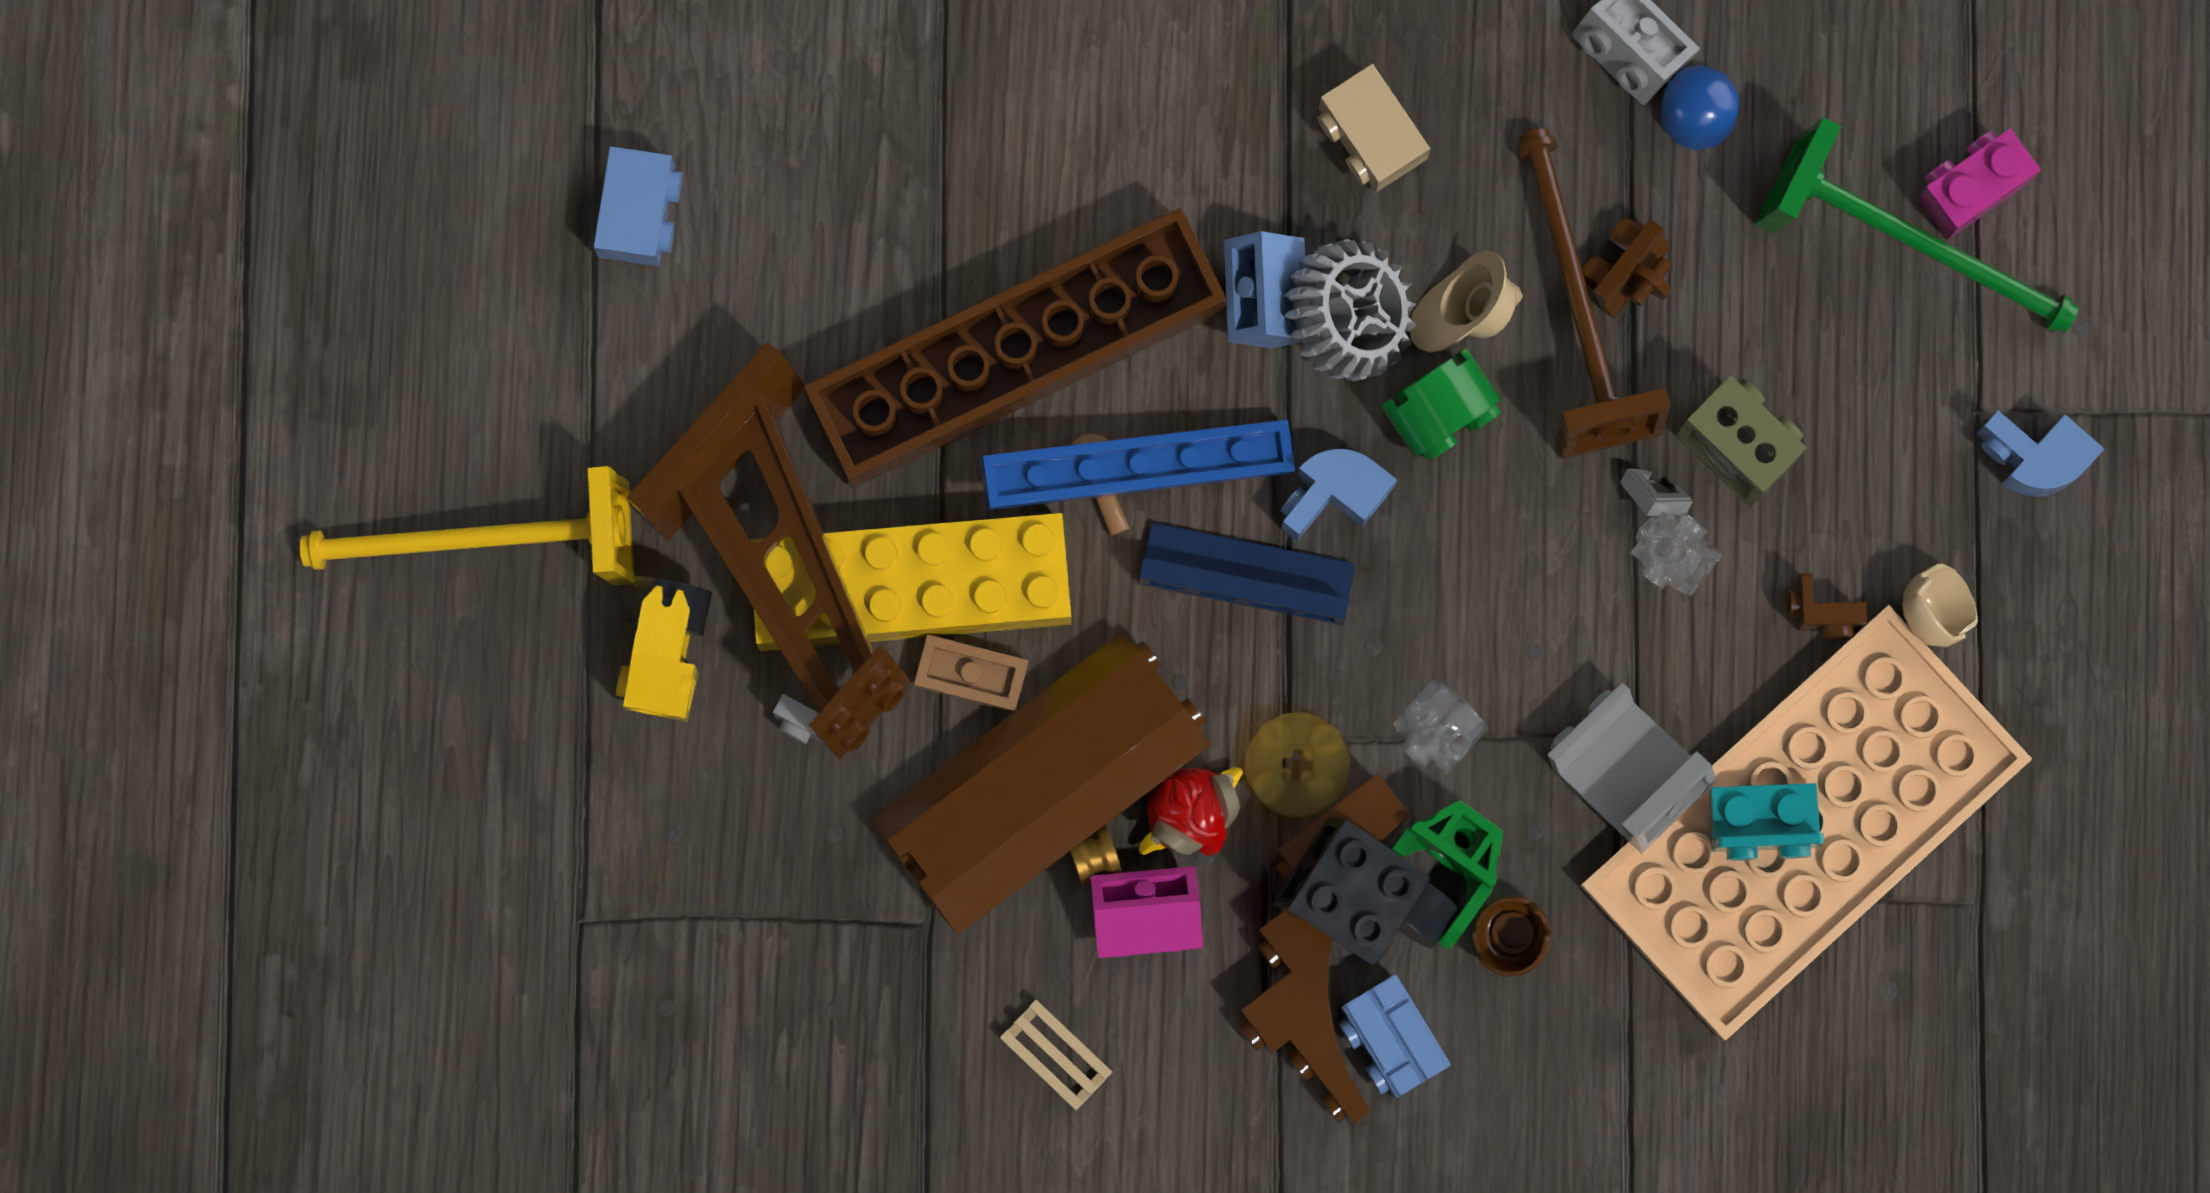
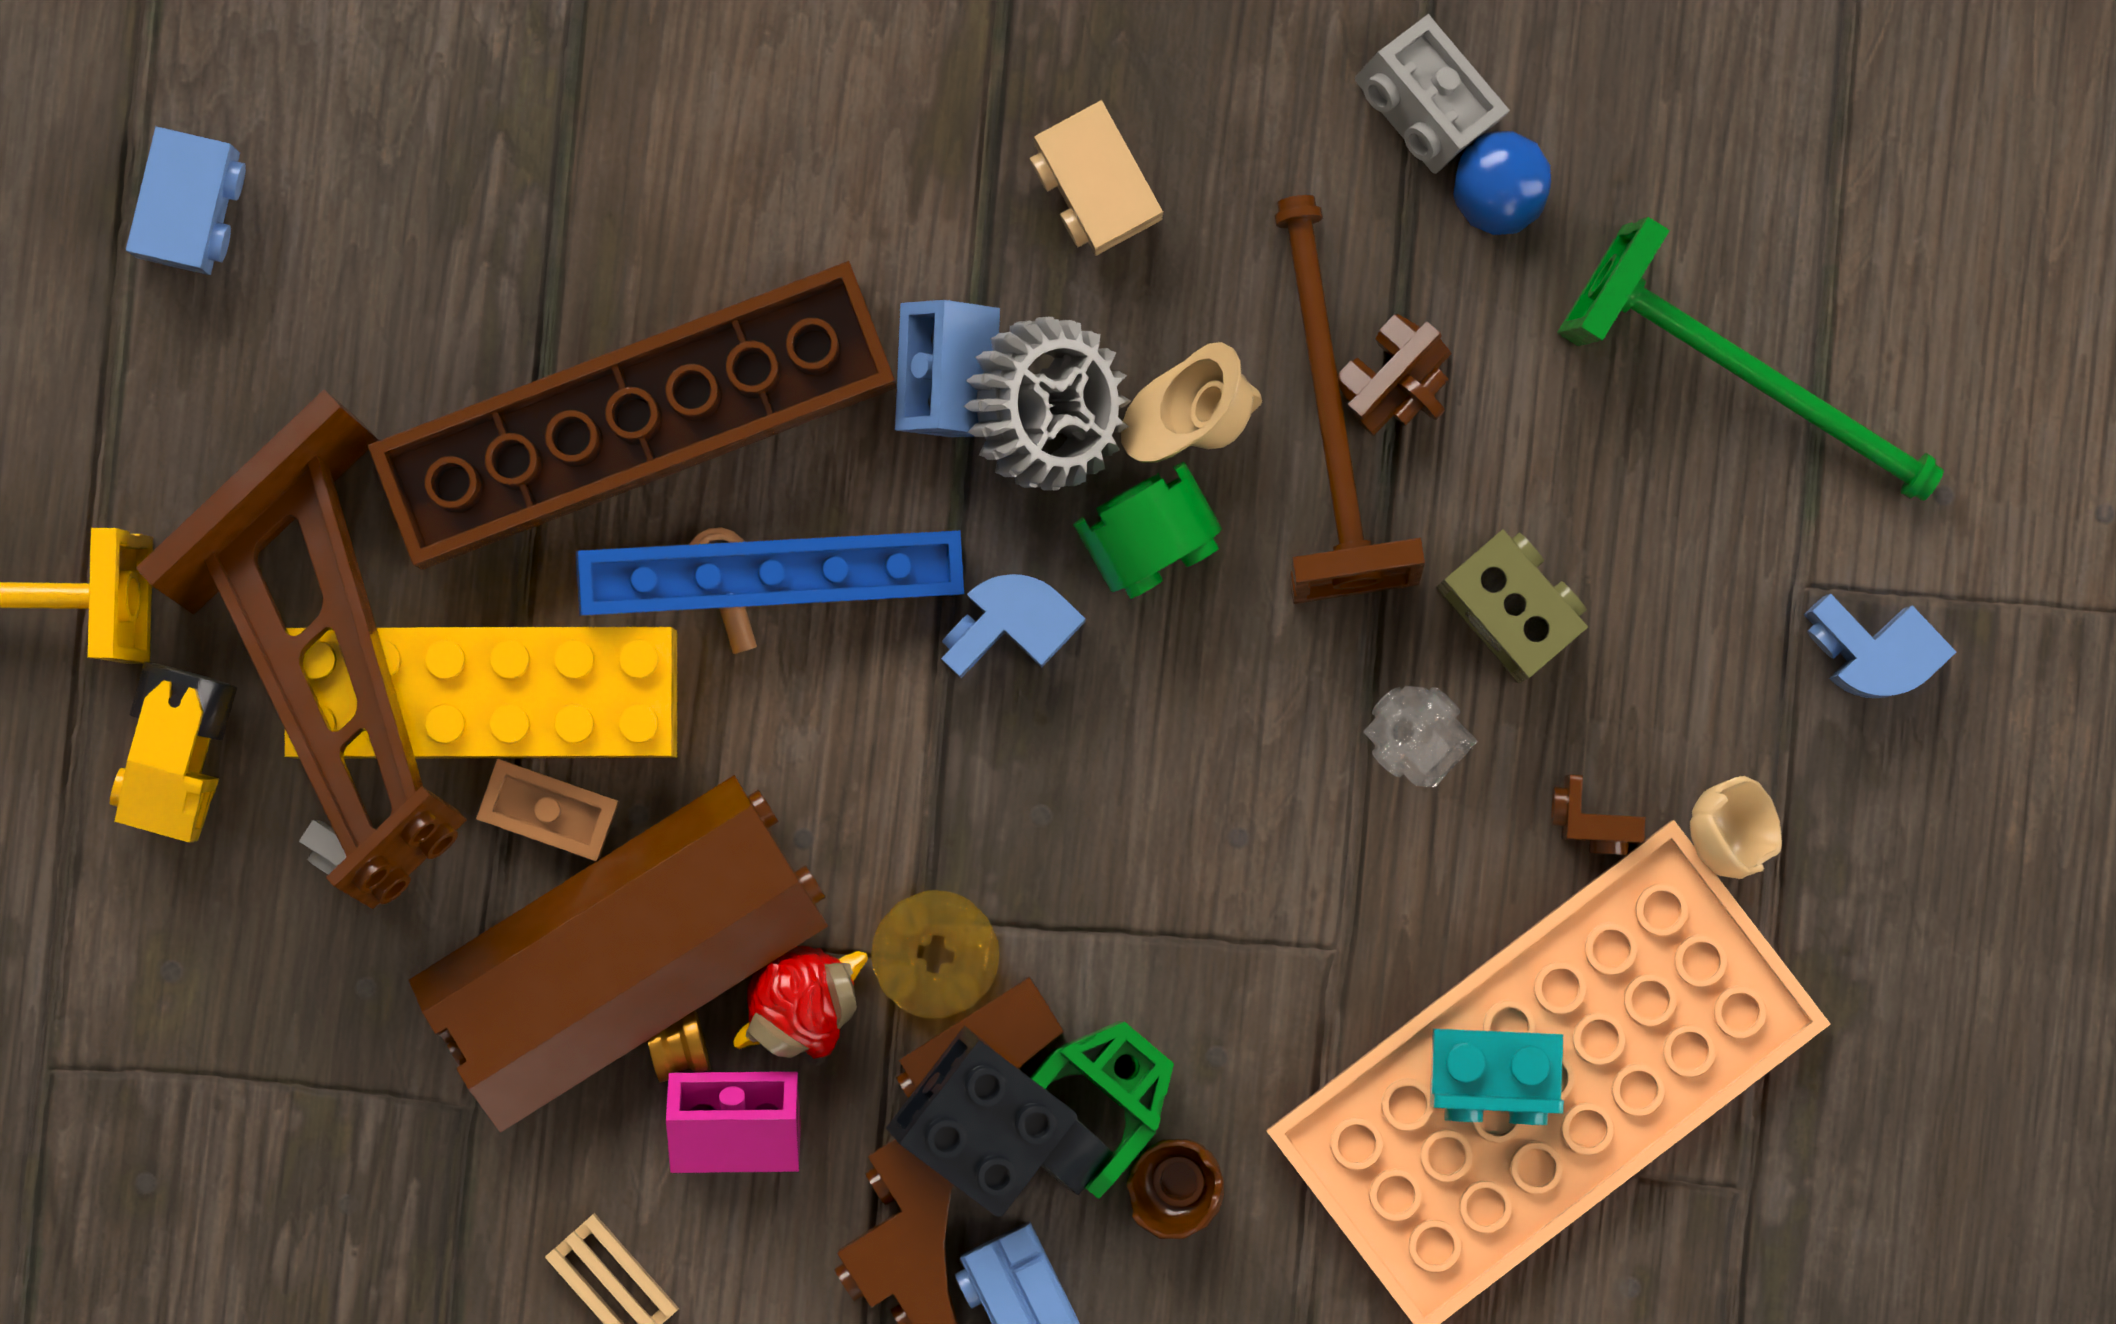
camera: 10 degrees right, 5 degrees up
(1247, 574) = (895, 713): dark blue panel -> none
(1439, 727) = (1110, 926): clear brick -> none
(1629, 768) = (1338, 994): light grey panel -> none
(1653, 496) = (1399, 661): light grey tile -> none
(1978, 183) = (1836, 307): dark pink brick -> none

